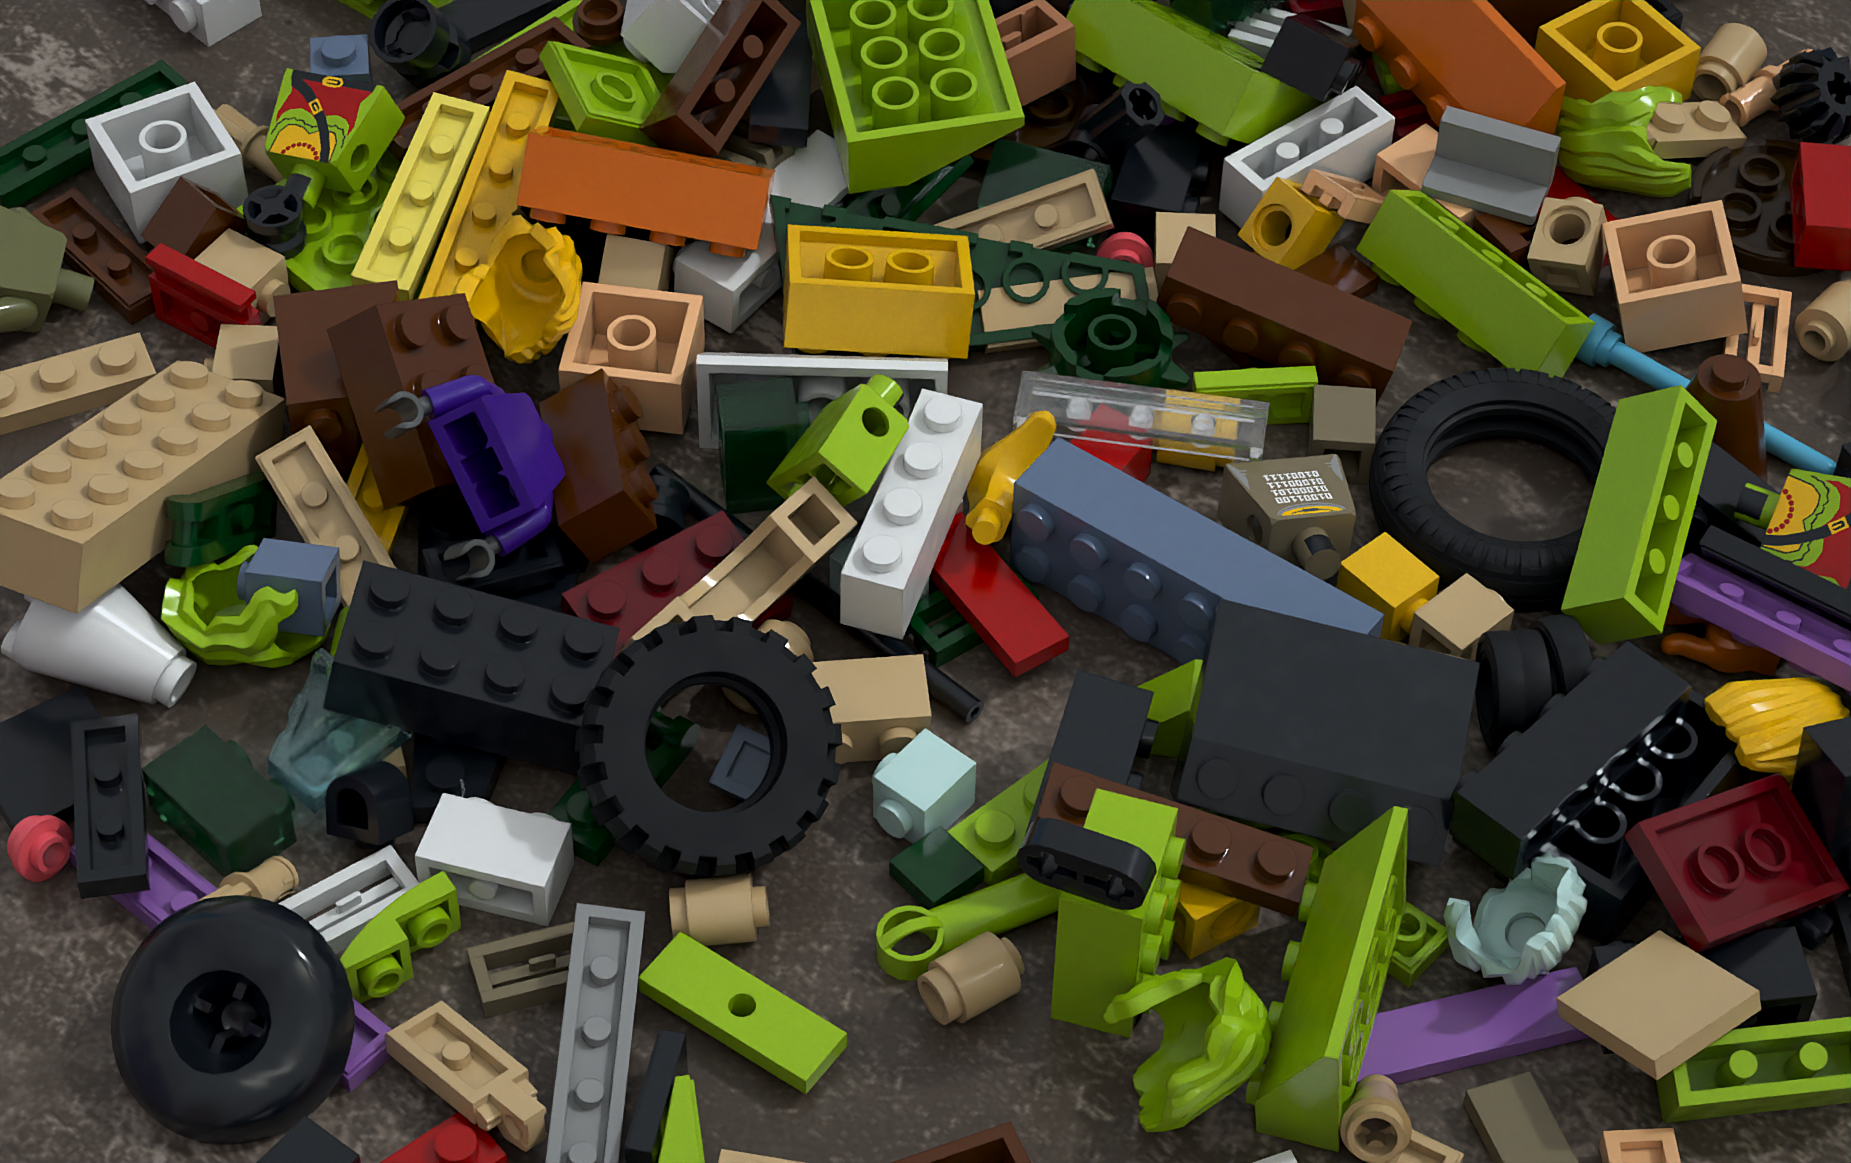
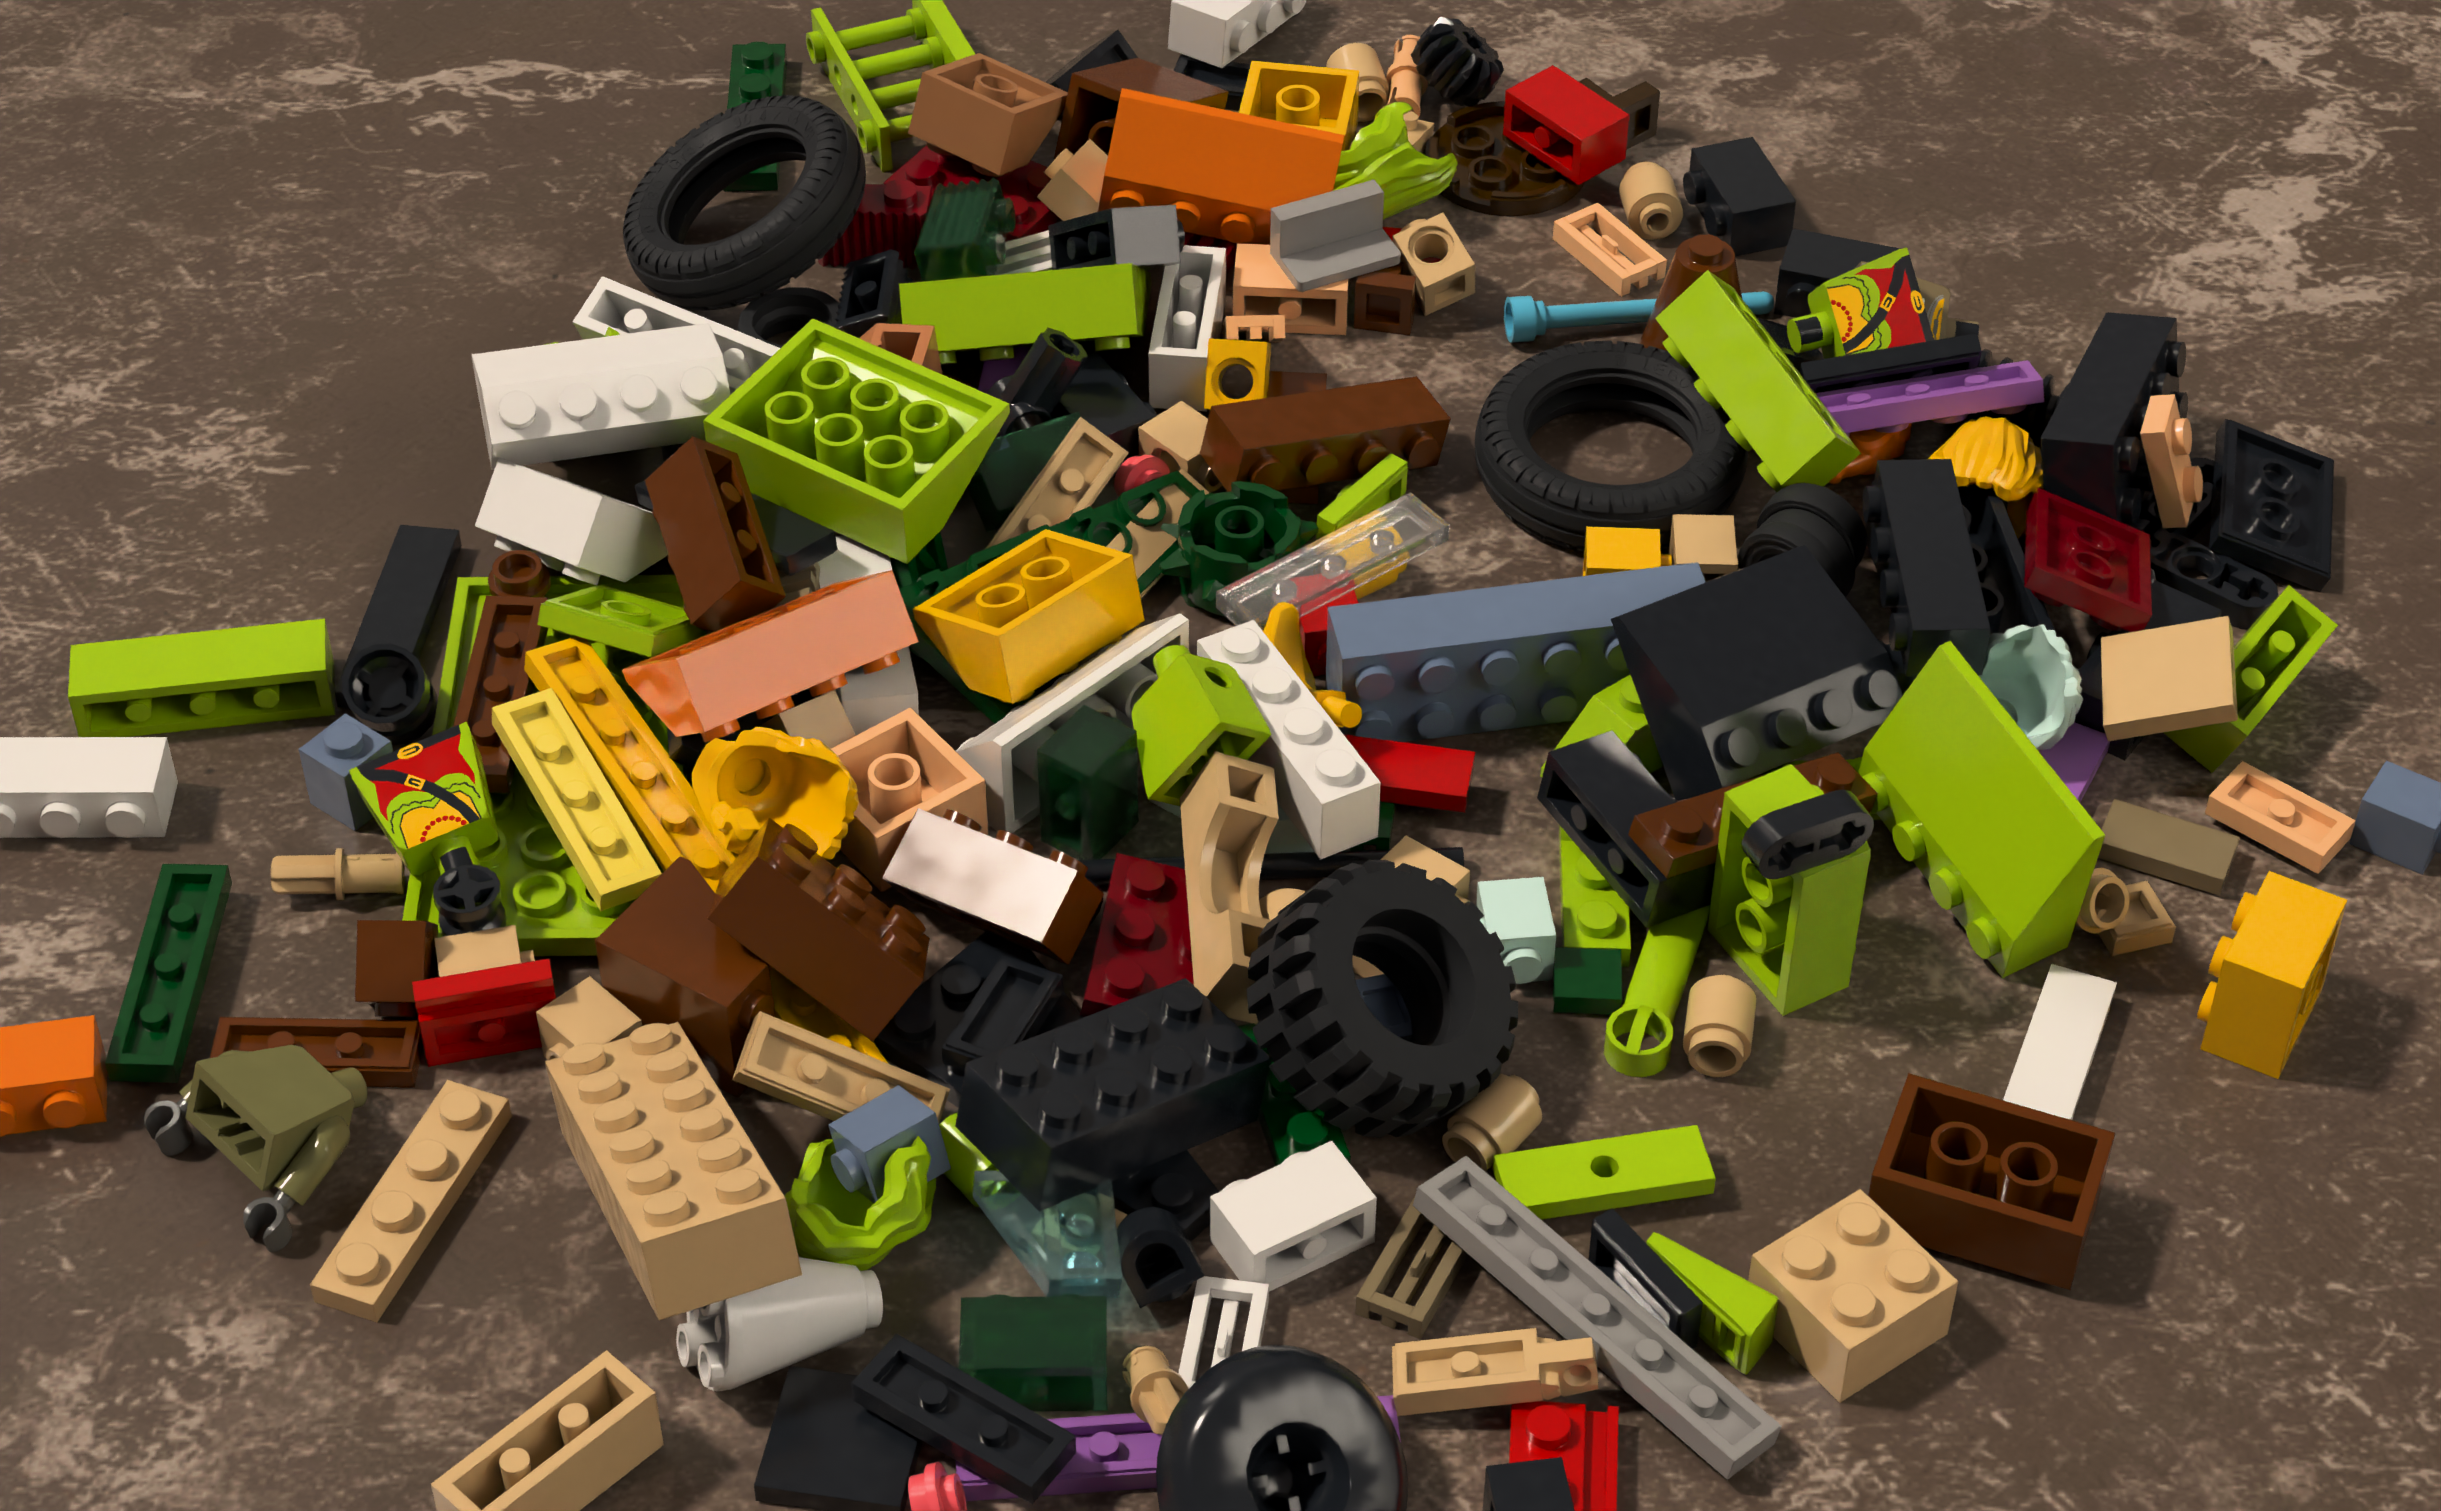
camera: 45 degrees left, 5 degrees down
(155, 141) = (291, 931): white brick -> none
(220, 520) = (770, 1140): dark green plate -> none
(381, 952) = (1305, 1304): lime slope -> none
(497, 456) = (961, 919): dark purple torso -> none
(1209, 1045) = (1936, 933): lime hair -> none
(1292, 509) = (1504, 548): dark tan torso -> none
(1345, 425) = (1456, 489): dark tan brick -> none
(1472, 285) = (1411, 333): lime brick -> none
(1675, 277) = (1536, 233): light nougat brick -> none

